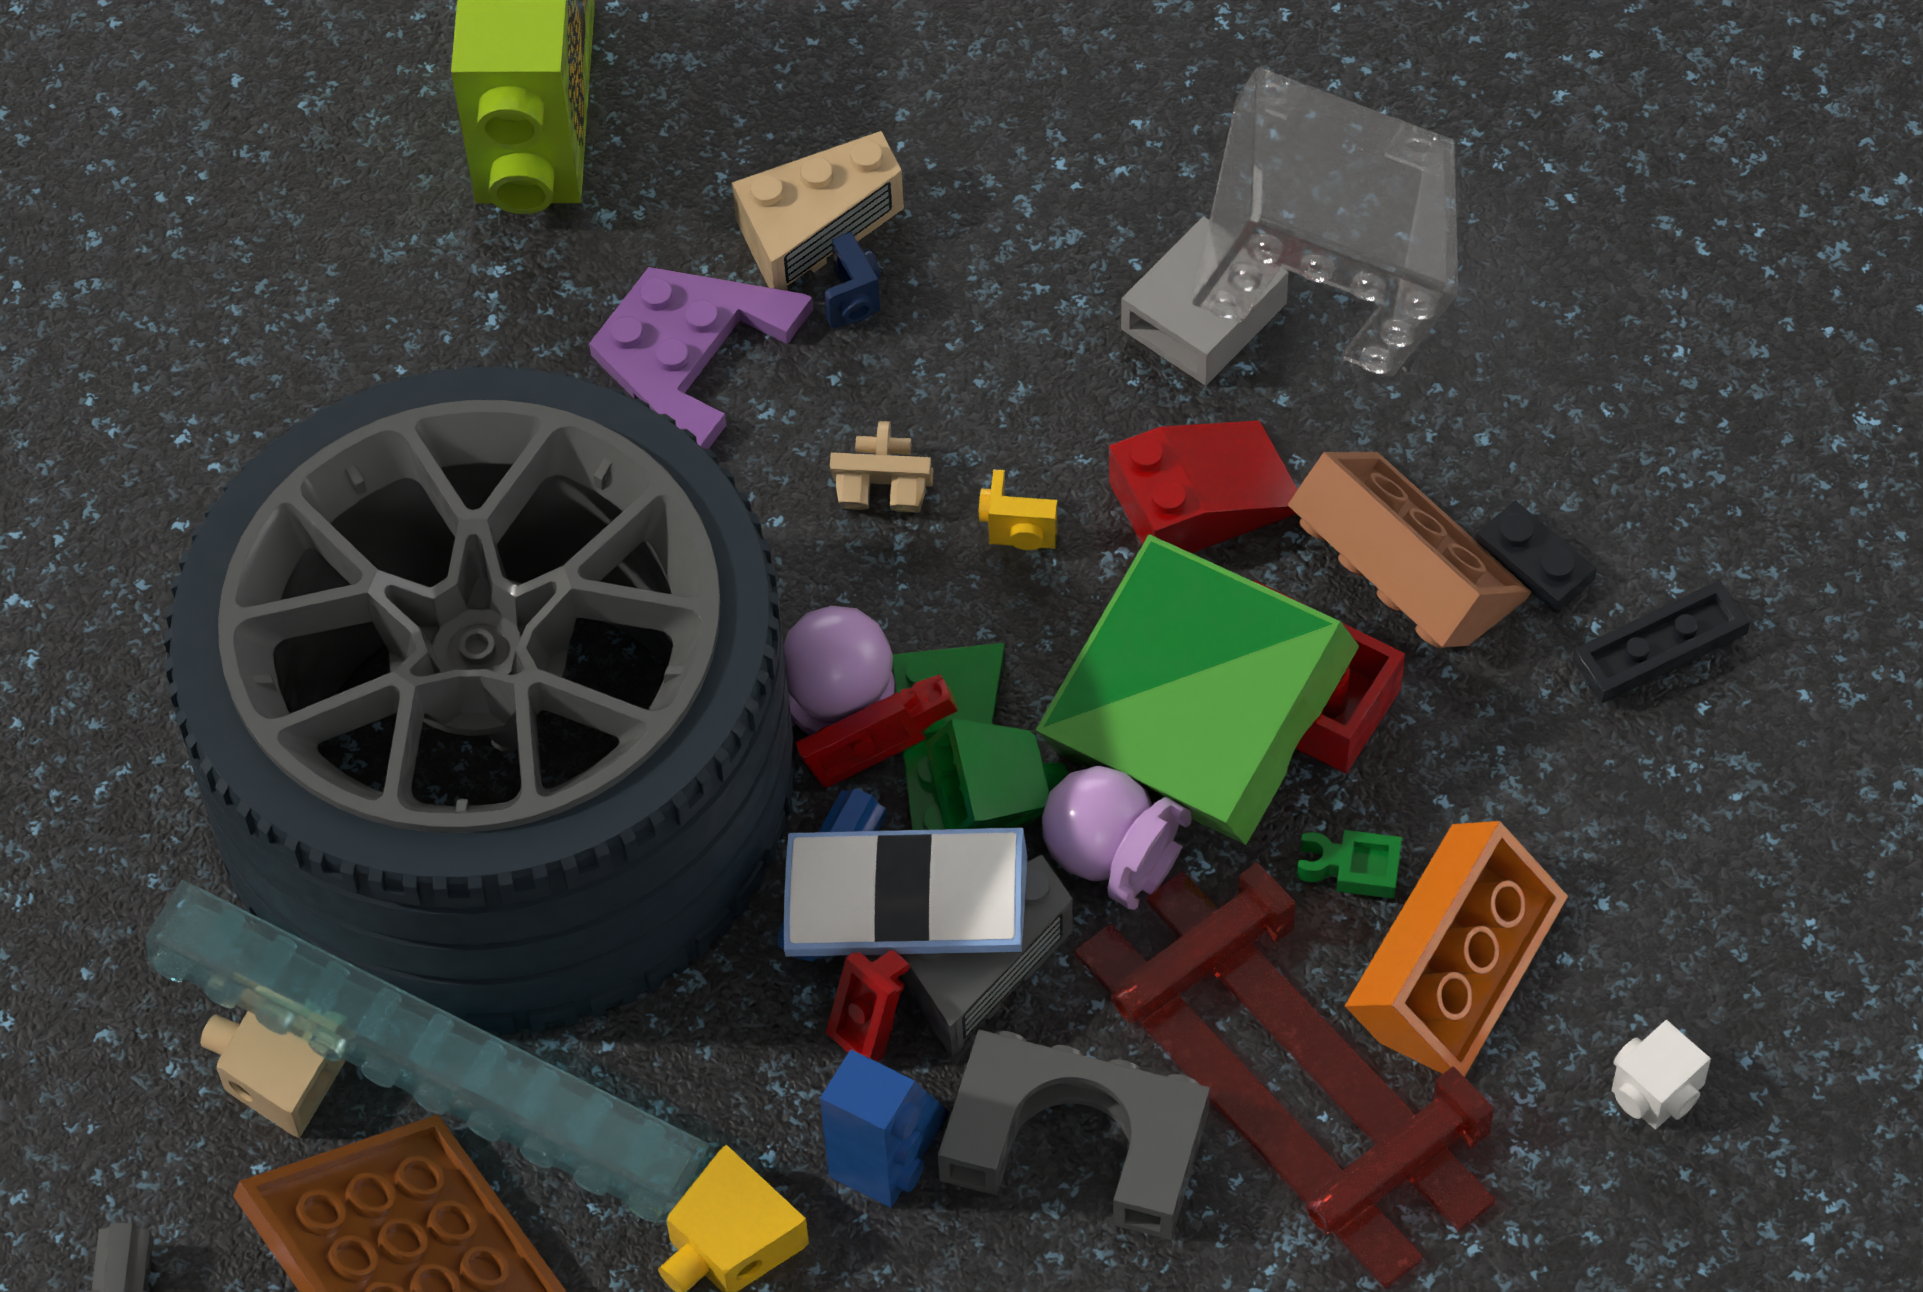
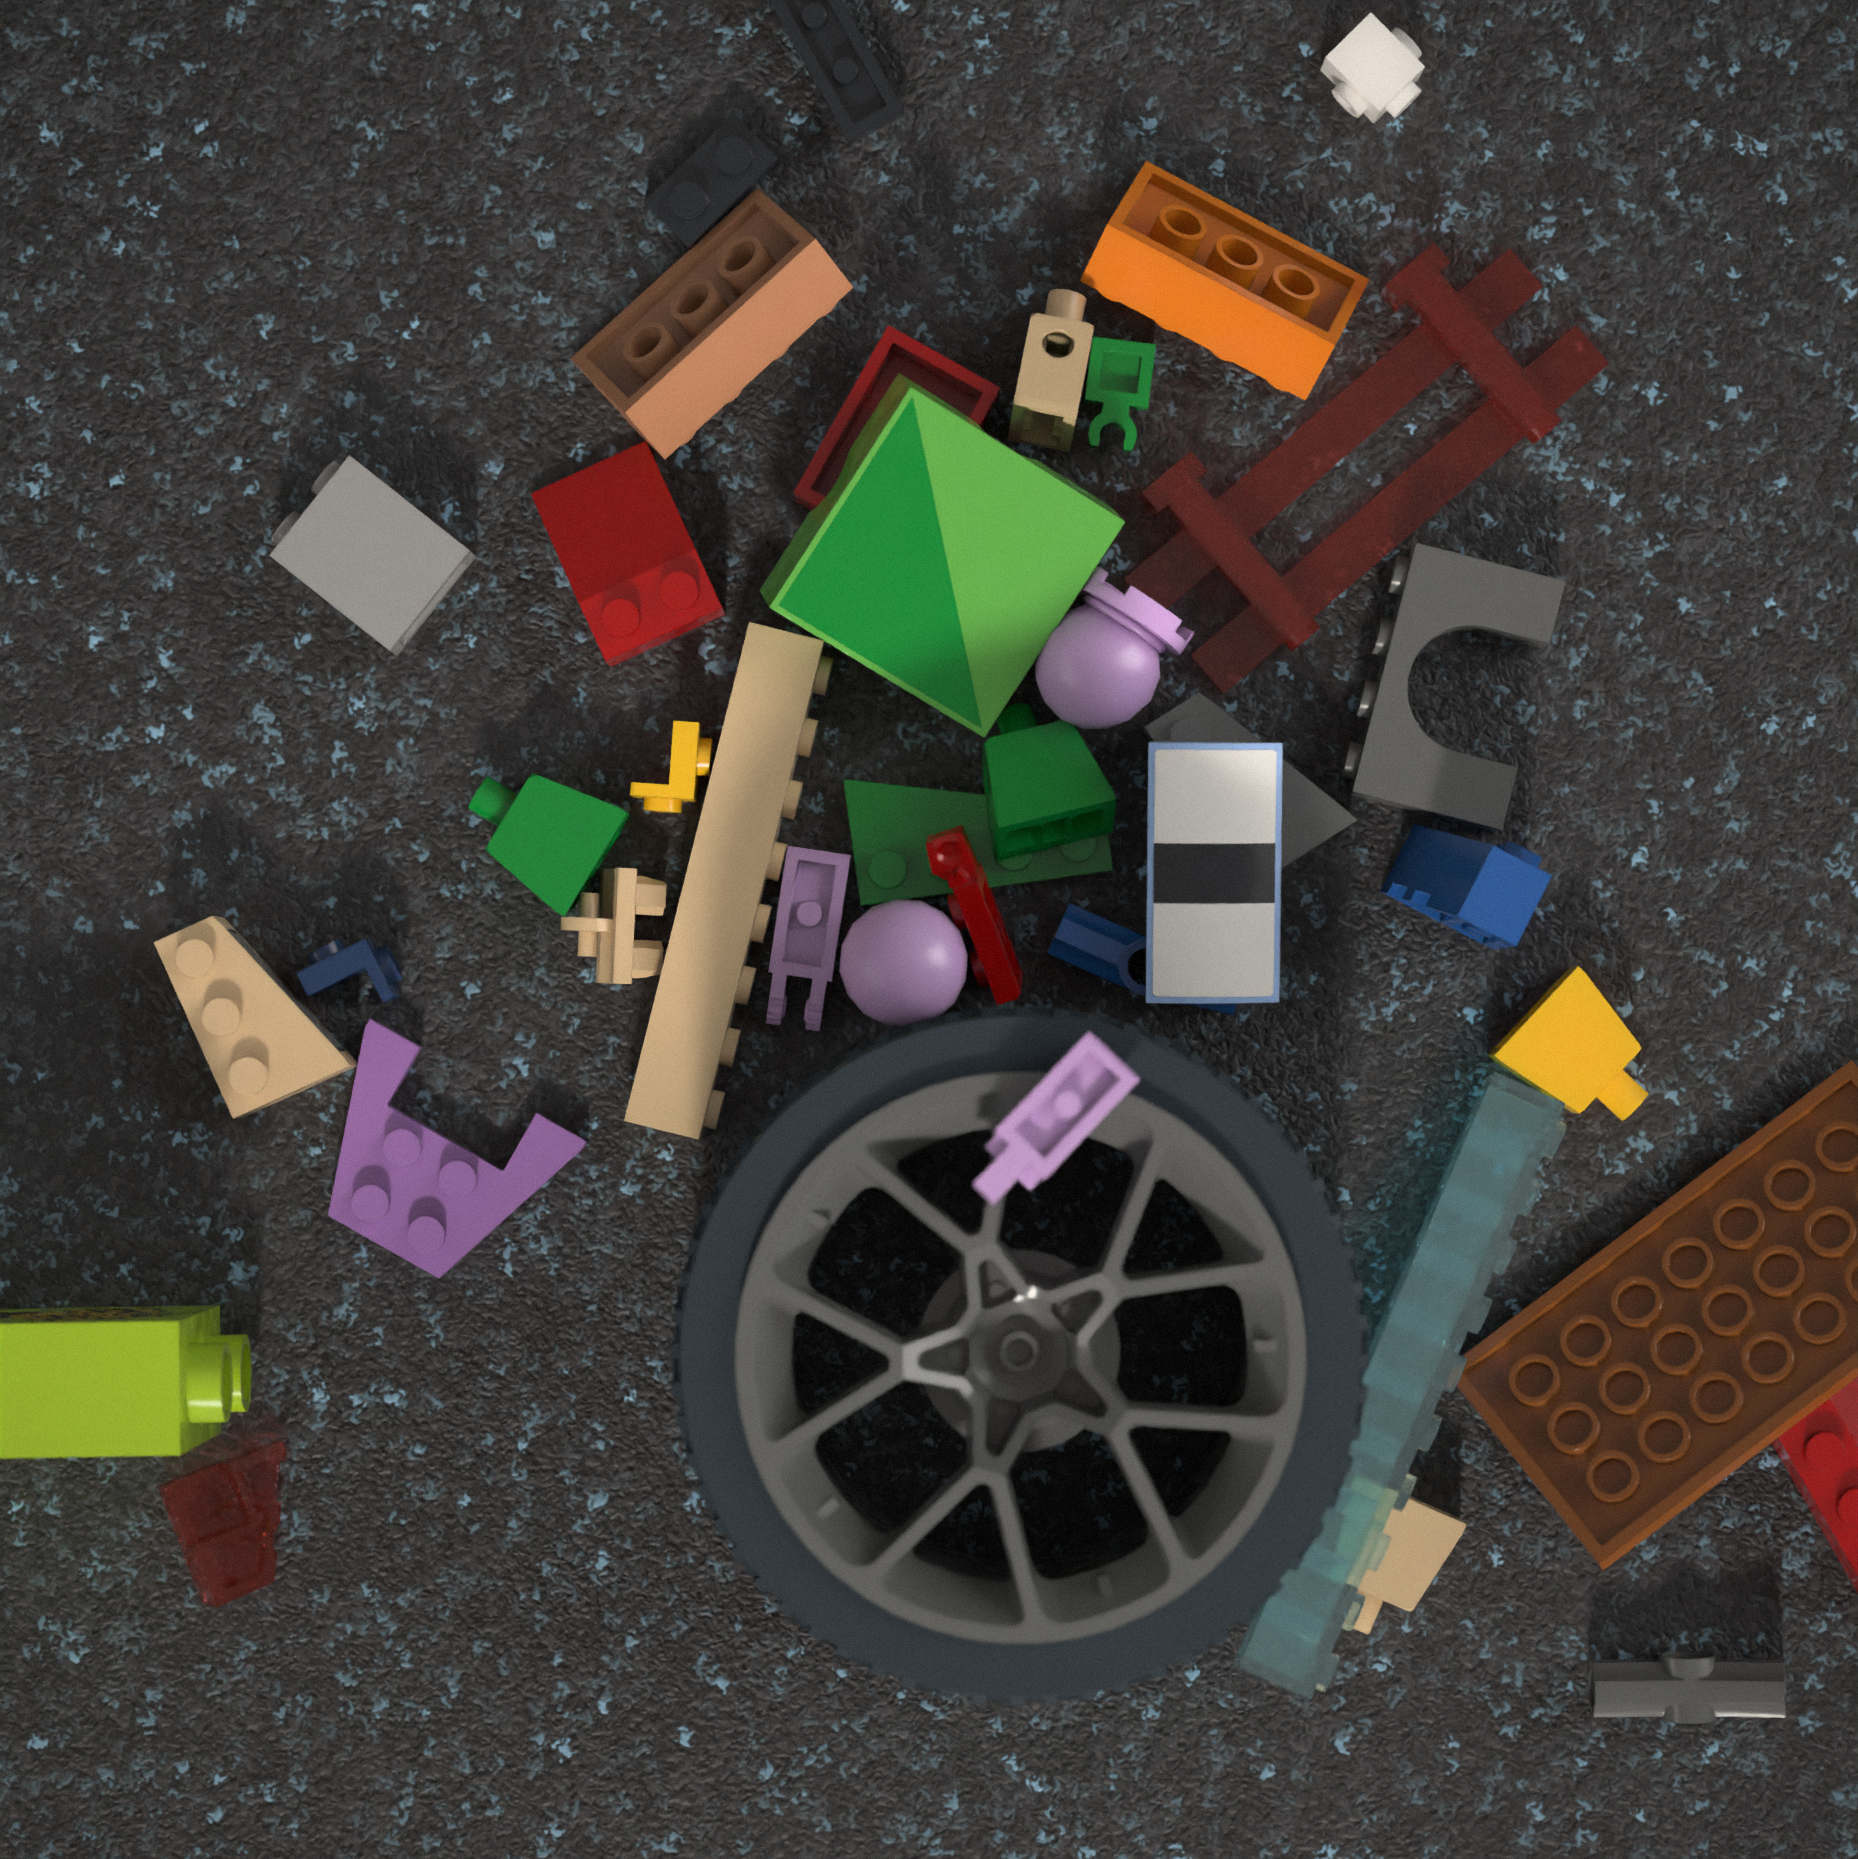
camera: 90 degrees left, 30 degrees up
(399, 200) = (228, 1522): none -> clear red slope
(675, 624) = (1055, 1117): none -> lavender hinge
(867, 1003) = (1328, 910): red plate -> none
(905, 615) = (807, 928): none -> lavender hinge
(933, 552) = (726, 882): none -> tan brick
(960, 423) = (549, 836): none -> green torso
(1342, 204) = (289, 397): clear windscreen -> none
(1366, 793) = (1052, 373): none -> tan torso

